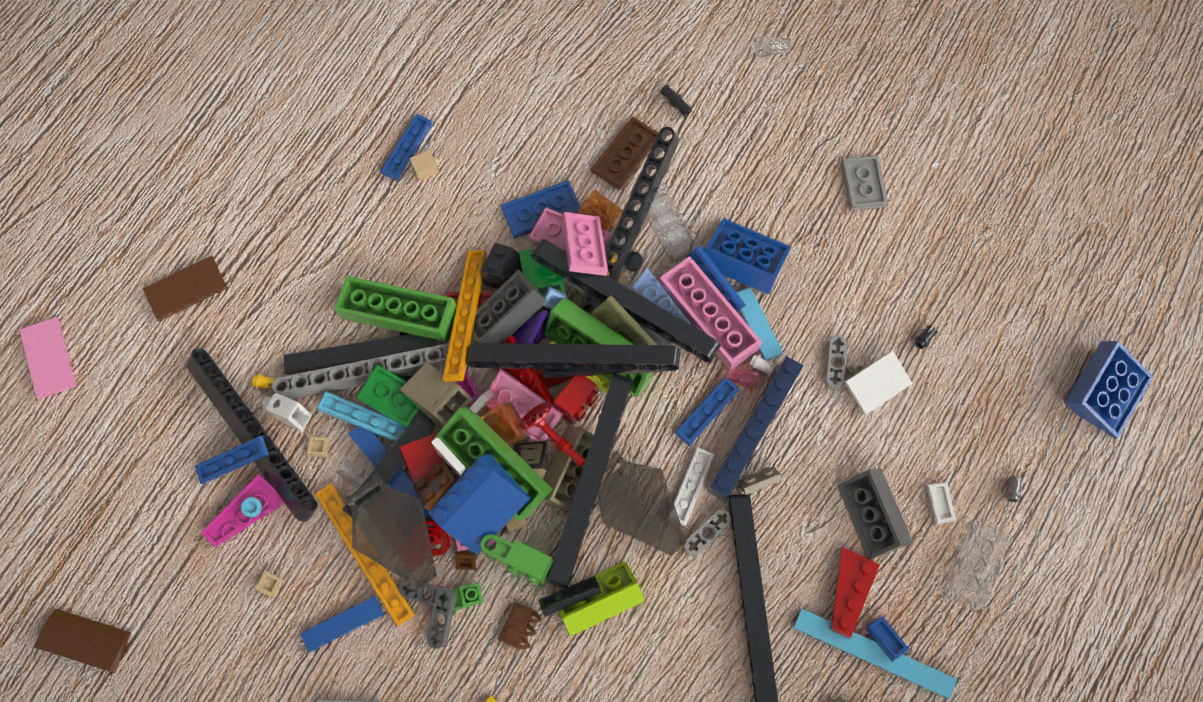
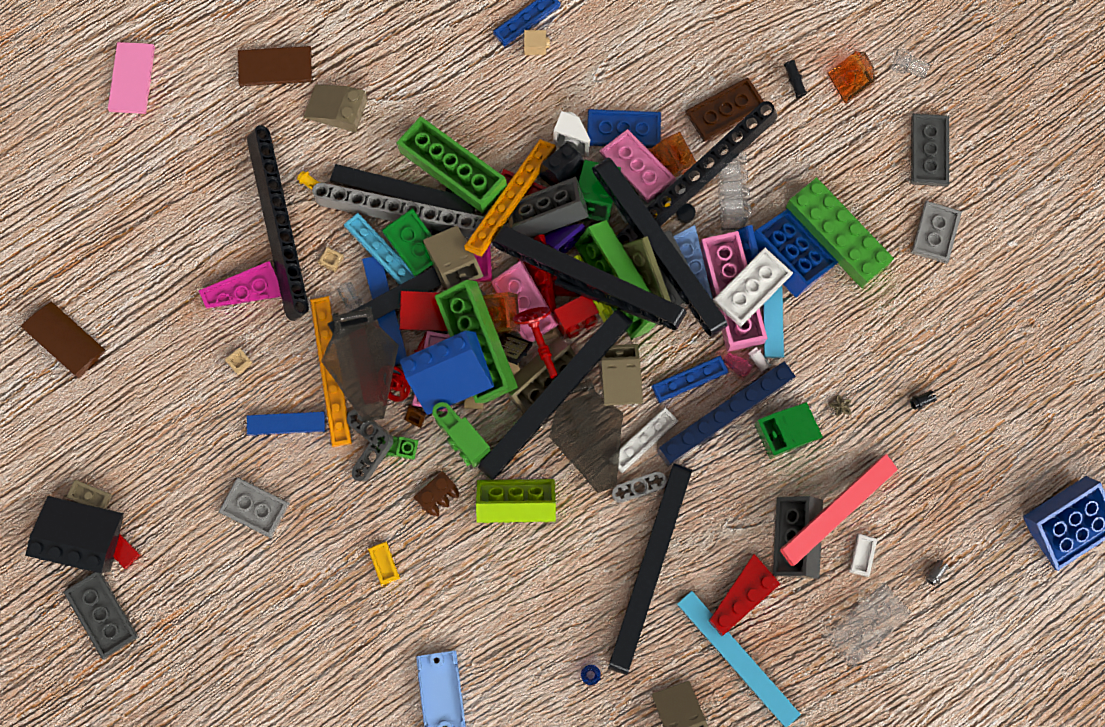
camera: 20 degrees right, 5 degrees up
(231, 460) = (251, 238): blue tile -> none
(251, 507) = (250, 287): medium azure tile -> none
(261, 301) = (337, 106): none -> dark tan slope
(287, 411) = (317, 216): white torso -> none
(435, 484) = (417, 337): reddish brown plate -> none
(448, 457) = (438, 318): white tile -> none
(481, 401) = (490, 282): light grey tile -> none
(495, 230) = (571, 130): none -> white slope
(553, 297) = (596, 215): light blue tile -> none
(569, 596) = (491, 487): black tile -> none
(584, 244) = (645, 178): bright pink tile -> none
(644, 435) = (621, 375): none -> dark tan slope
(726, 76) = (852, 75): none -> clear orange slope
(726, 301) = (752, 287): none -> white tile
(760, 480) = (702, 461): dark tan plate -> none
(780, 219) = (839, 232): none -> bright green brick
(818, 418) = (787, 430): none -> green slope
(824, 113) = (930, 150): none -> dark grey tile
(841, 355) = (839, 378): light grey beam -> none
(878, 382) = (858, 422): white tile -> none
(887, 638) = (755, 651): blue tile -> none
(900, 472) = (838, 510): none -> coral tile

